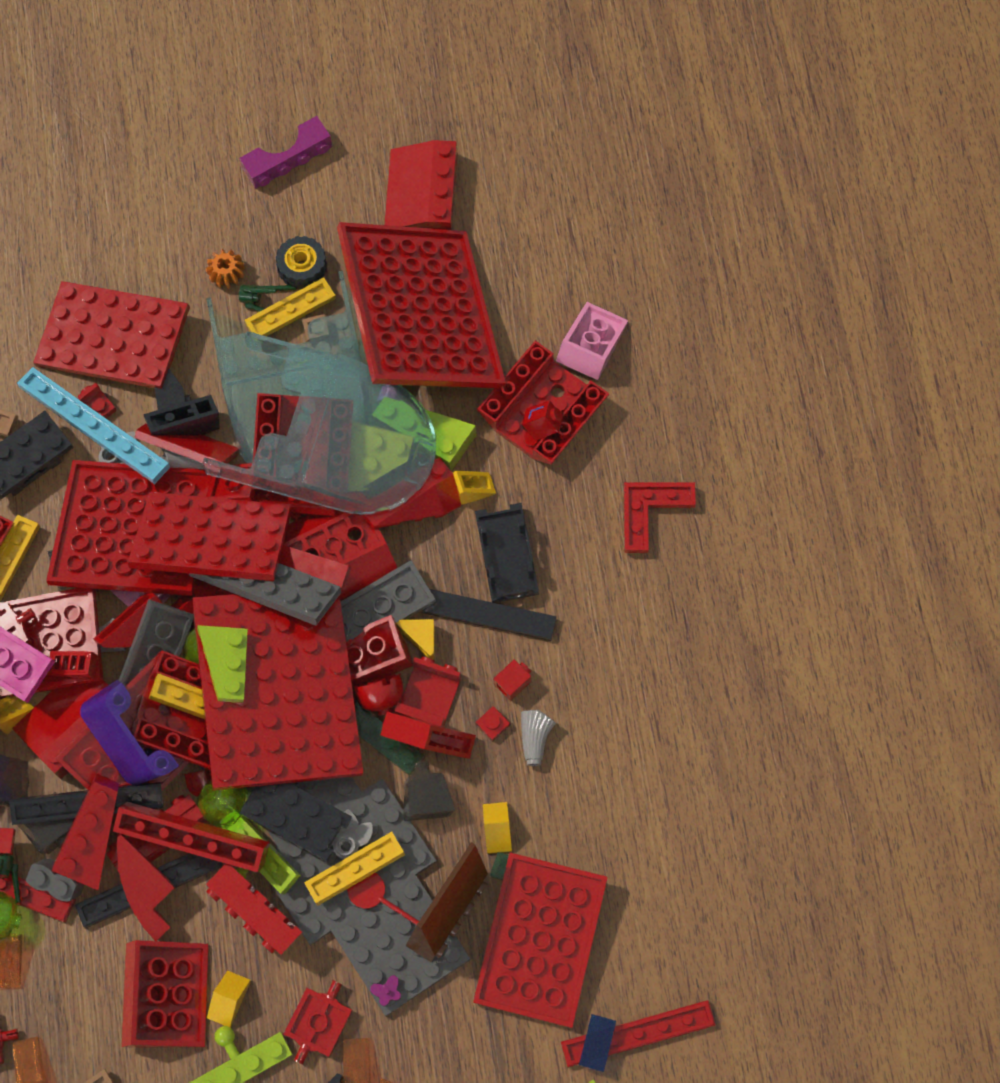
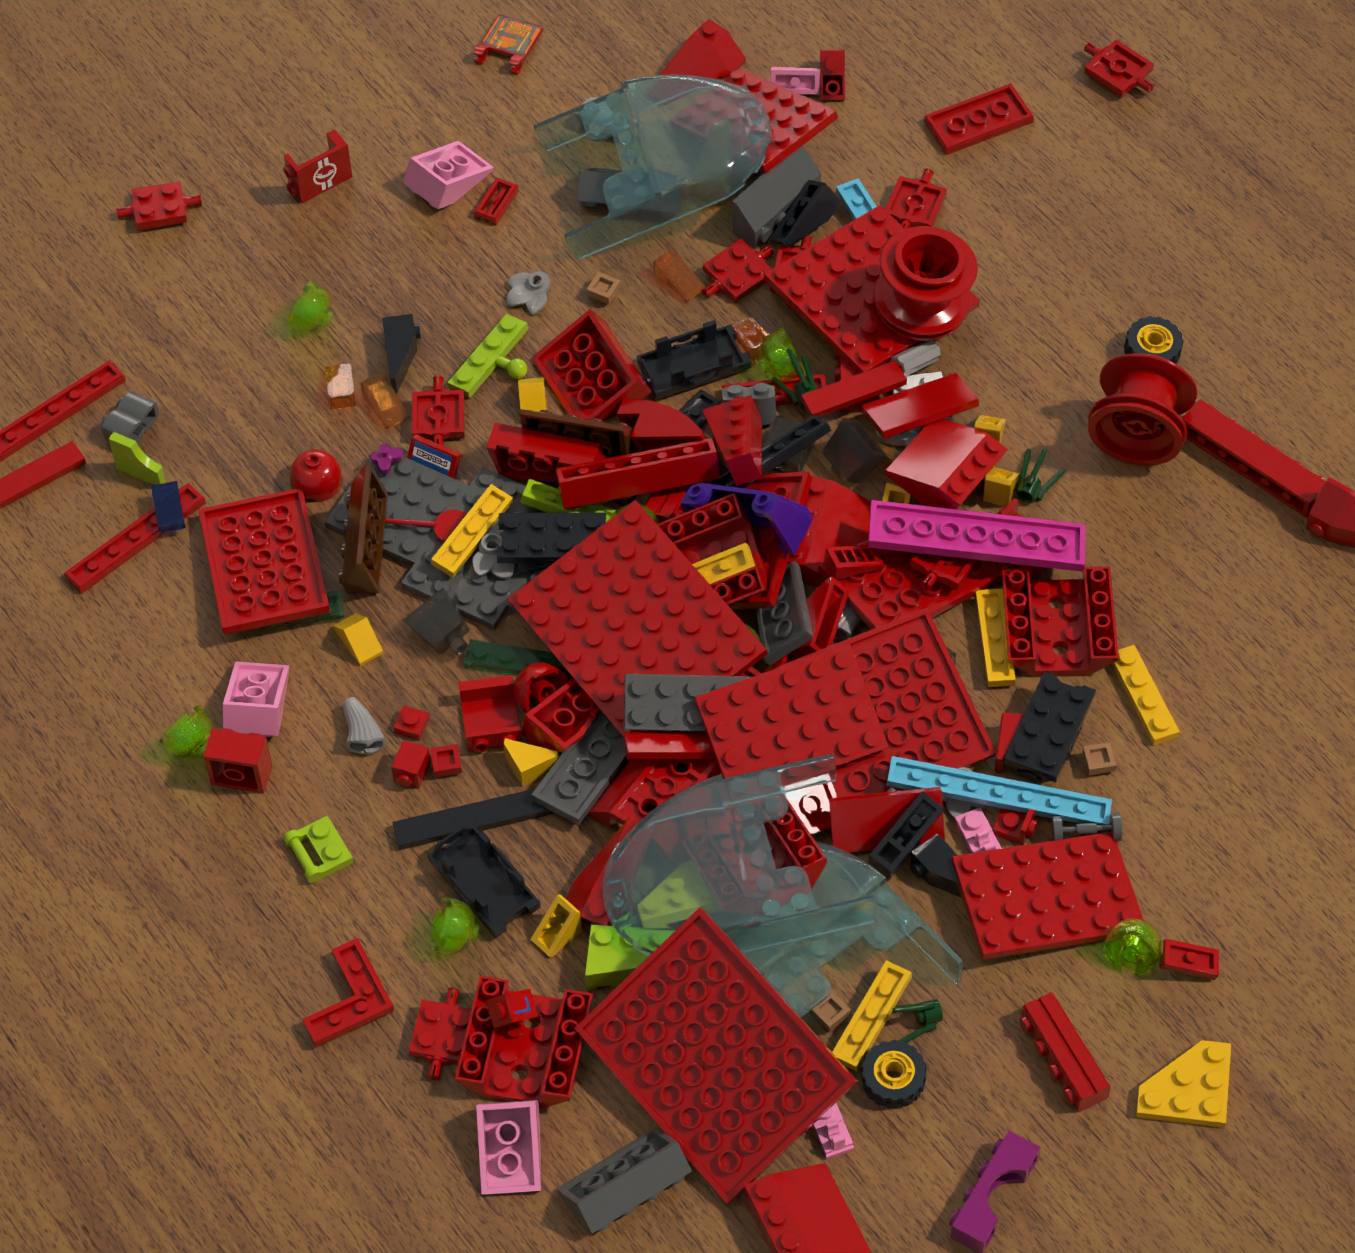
camera: 150 degrees right, 15 degrees down
(50, 241) = (1190, 959): none -> red plate
(57, 470) = (1008, 728): none -> red slope
(70, 381) = (1087, 828): none -> dark grey wheel
(73, 959) = (694, 362): none -> black piece
(78, 267) = (1133, 946): none -> clear neon green cylinder
(111, 163) = (1190, 1088): none -> yellow plate
(128, 408) = (976, 831): none -> bright pink plate
(177, 219) = (1065, 1052): none -> red brick
(213, 920) = (613, 438): none -> reddish brown slope
(217, 270) = (963, 1024): orange gear -> none
(226, 659) = (694, 607): lime wing -> none
(345, 975) = (434, 456): none -> tile
(427, 735) = (465, 656): red arch -> none
(454, 1014) = (316, 475): none -> red cylinder
(483, 671) = (446, 760): none -> red plate
(527, 279) = (625, 1180): none -> dark grey slope
(551, 519) = (453, 927): none -> clear neon green cylinder
(596, 449) = (440, 1032): none -> red plate
(606, 808) = (255, 698): none -> bright pink slope
(610, 647) = (325, 843): none -> lime plate
(648, 743) = (238, 760): none -> red slope
(676, 795) = (188, 734): none -> clear neon green cylinder

